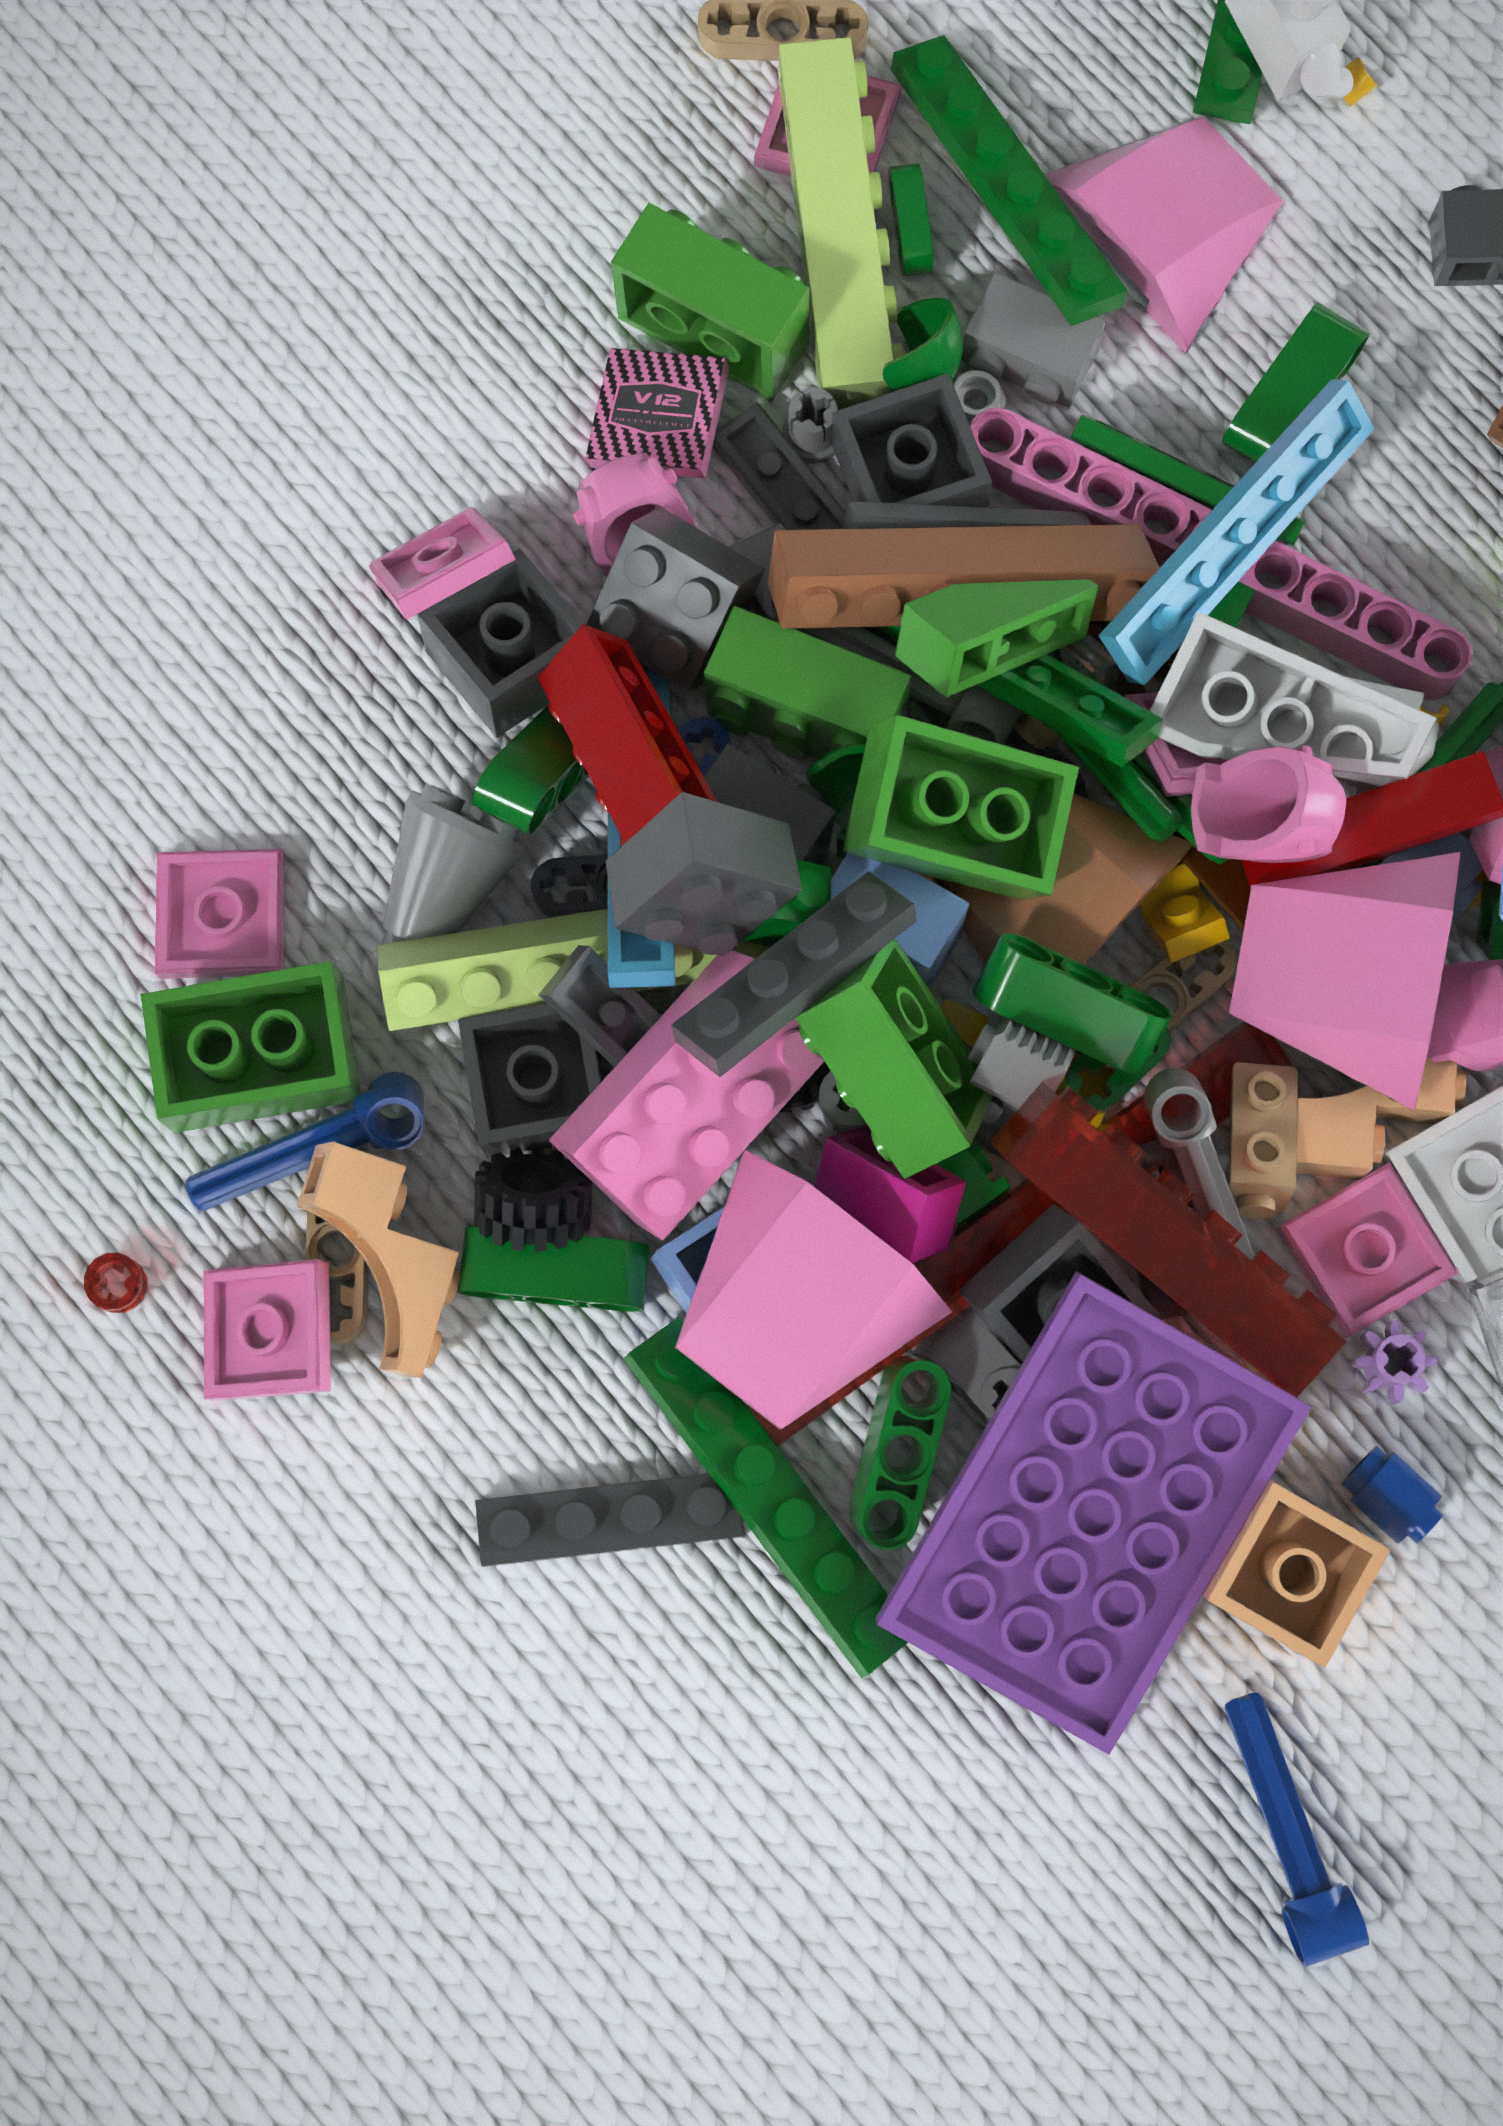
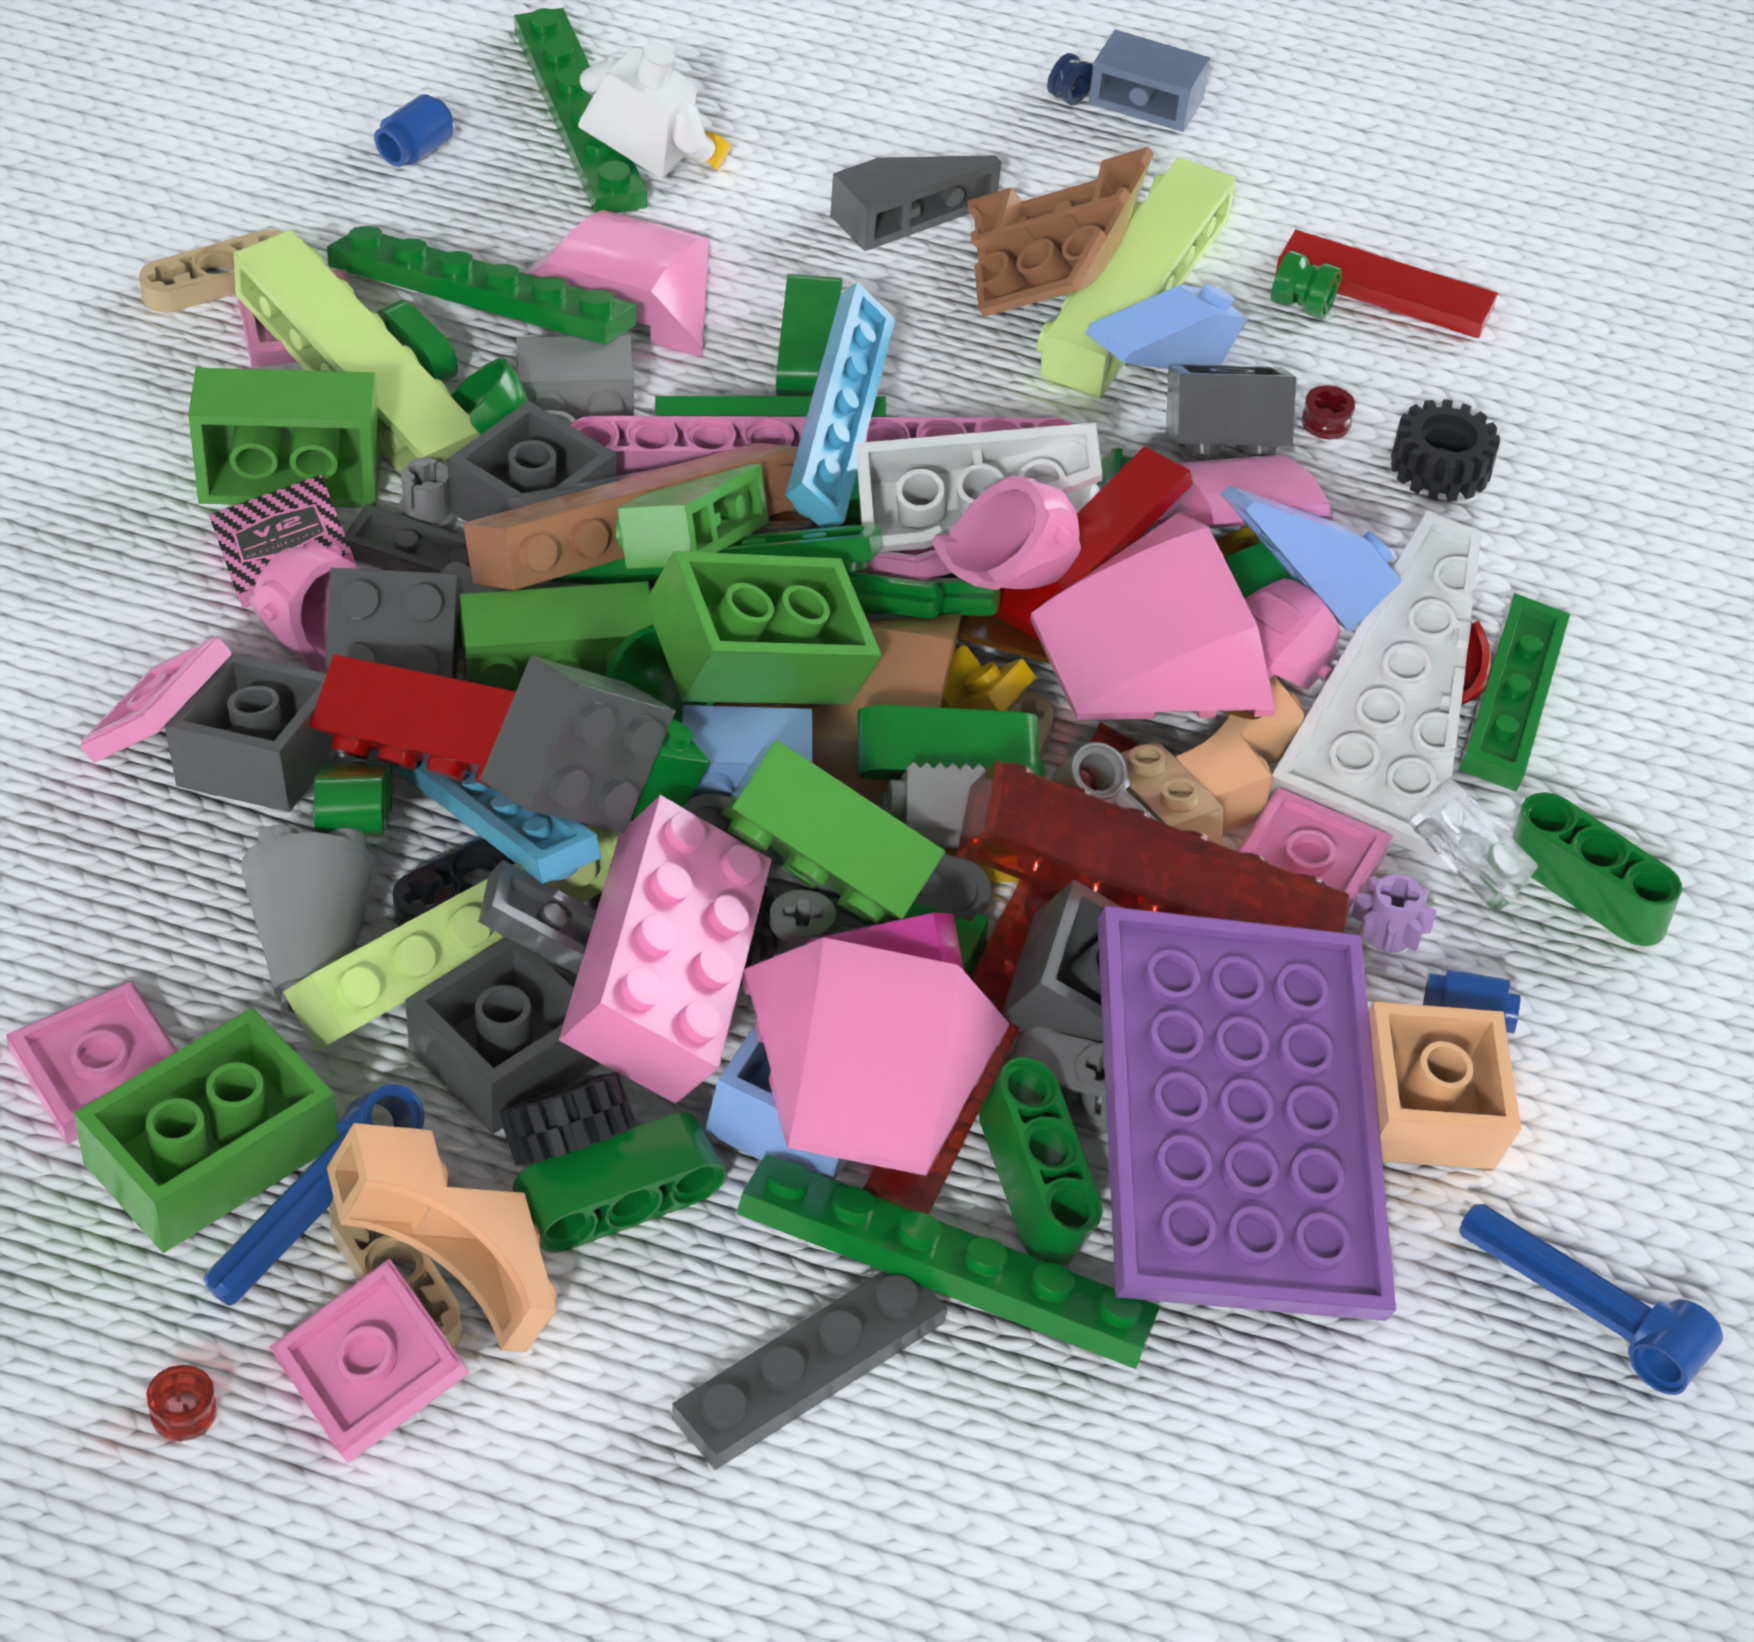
camera: 40 degrees left, 30 degrees down
(793, 973) = (707, 780): dark grey plate -> none

